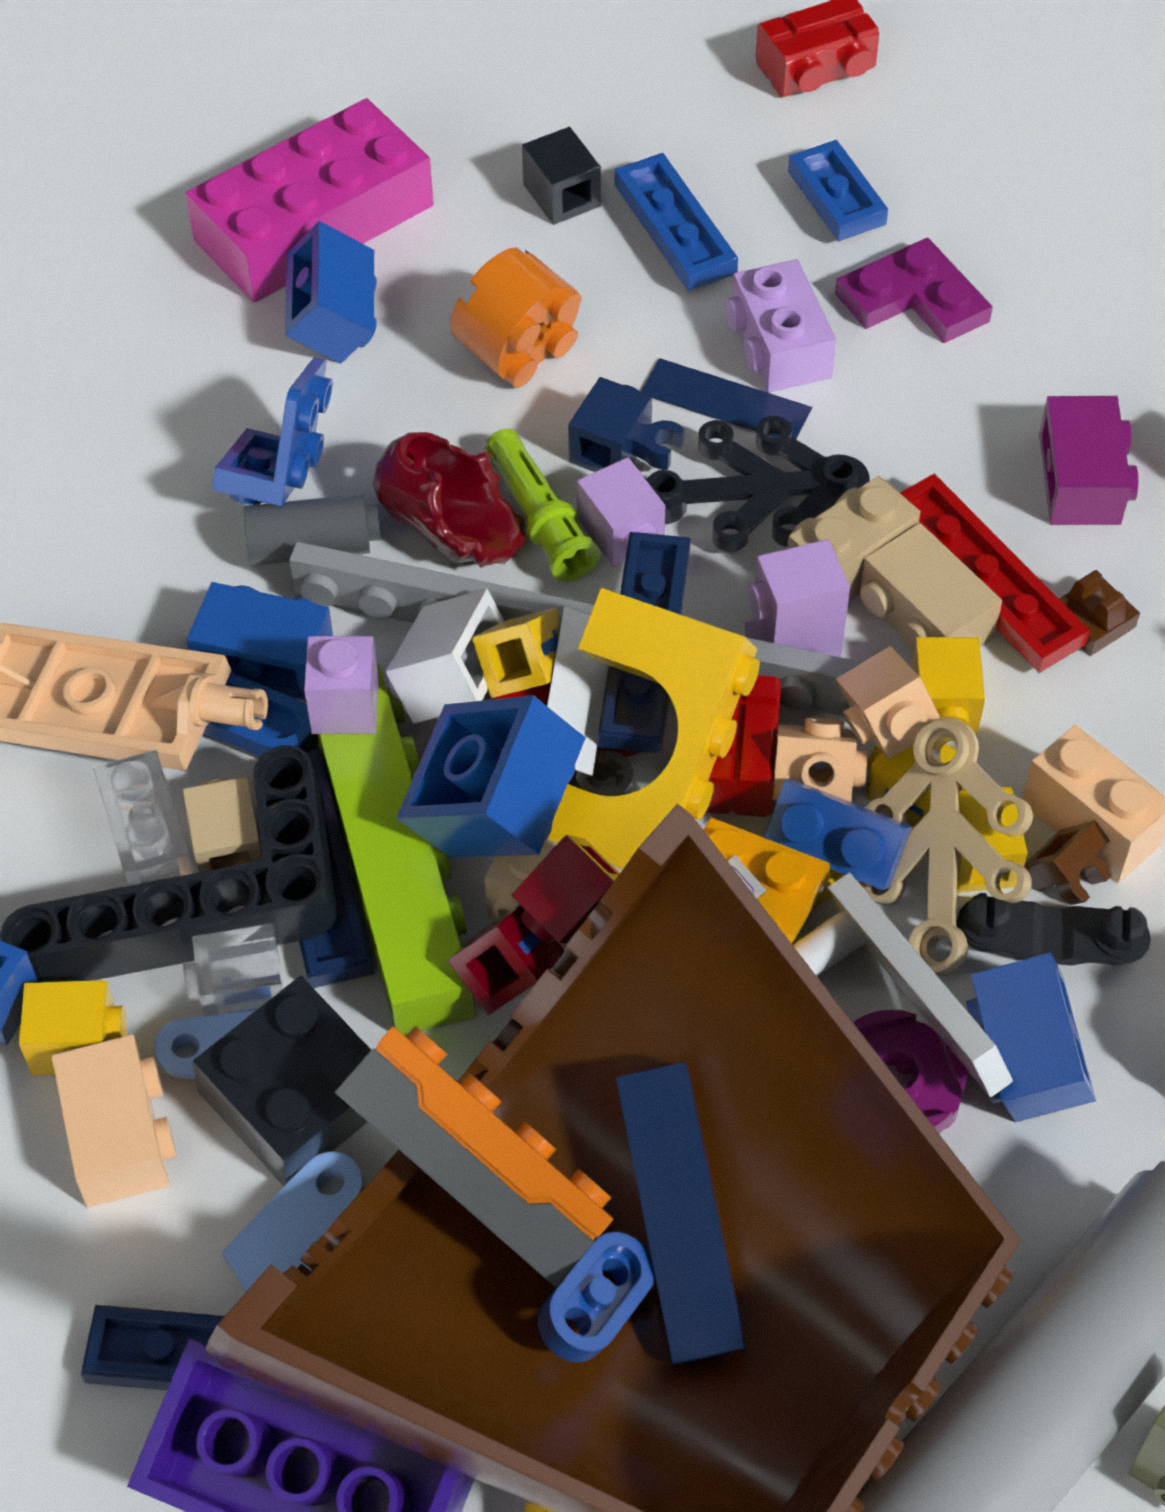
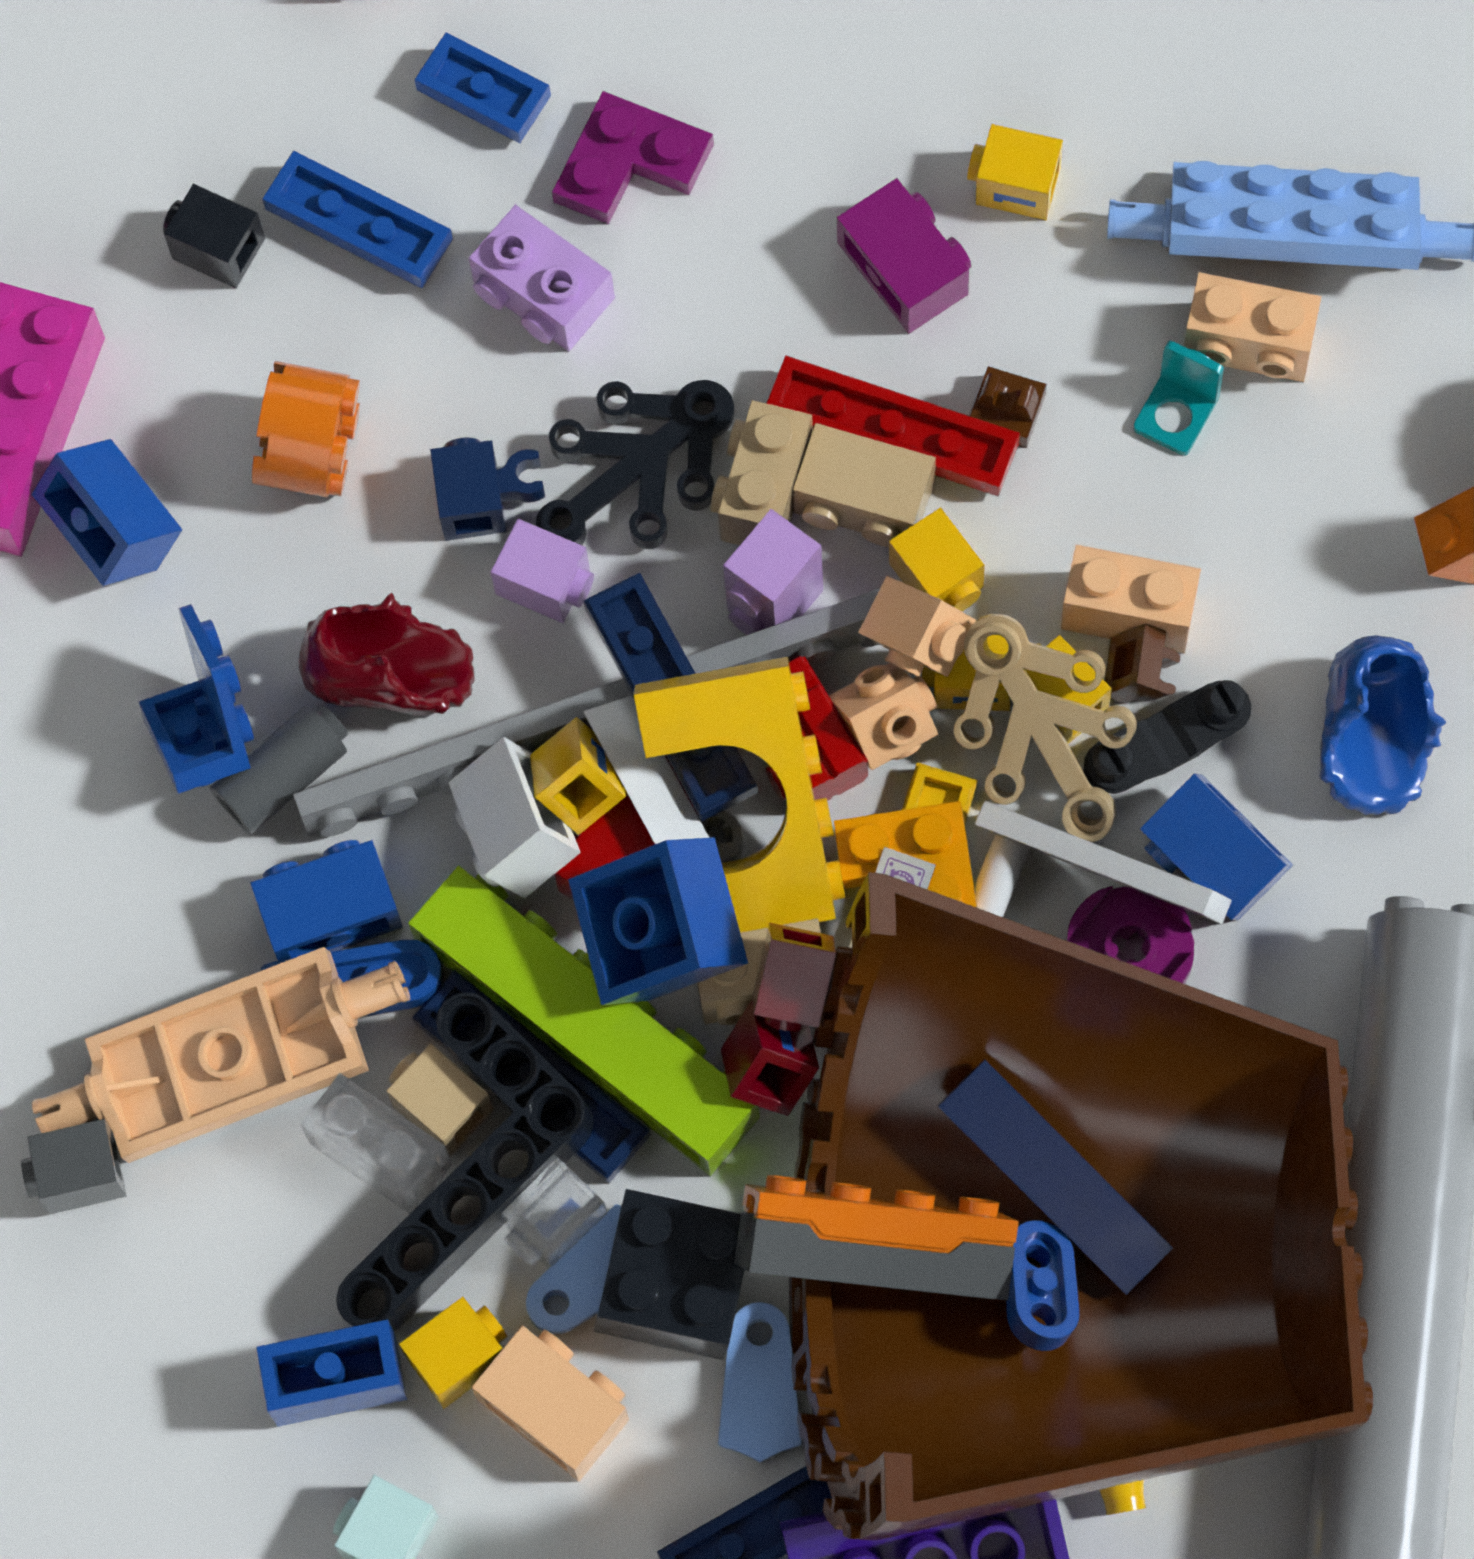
camera: 30 degrees left, 15 degrees up
(341, 684) = (459, 913): lavender brick -> none
(550, 520) = (482, 618): lime pin -> none
(721, 397) = (534, 384): dark blue sticker -> none
(838, 833) = (949, 769): blue plate -> none

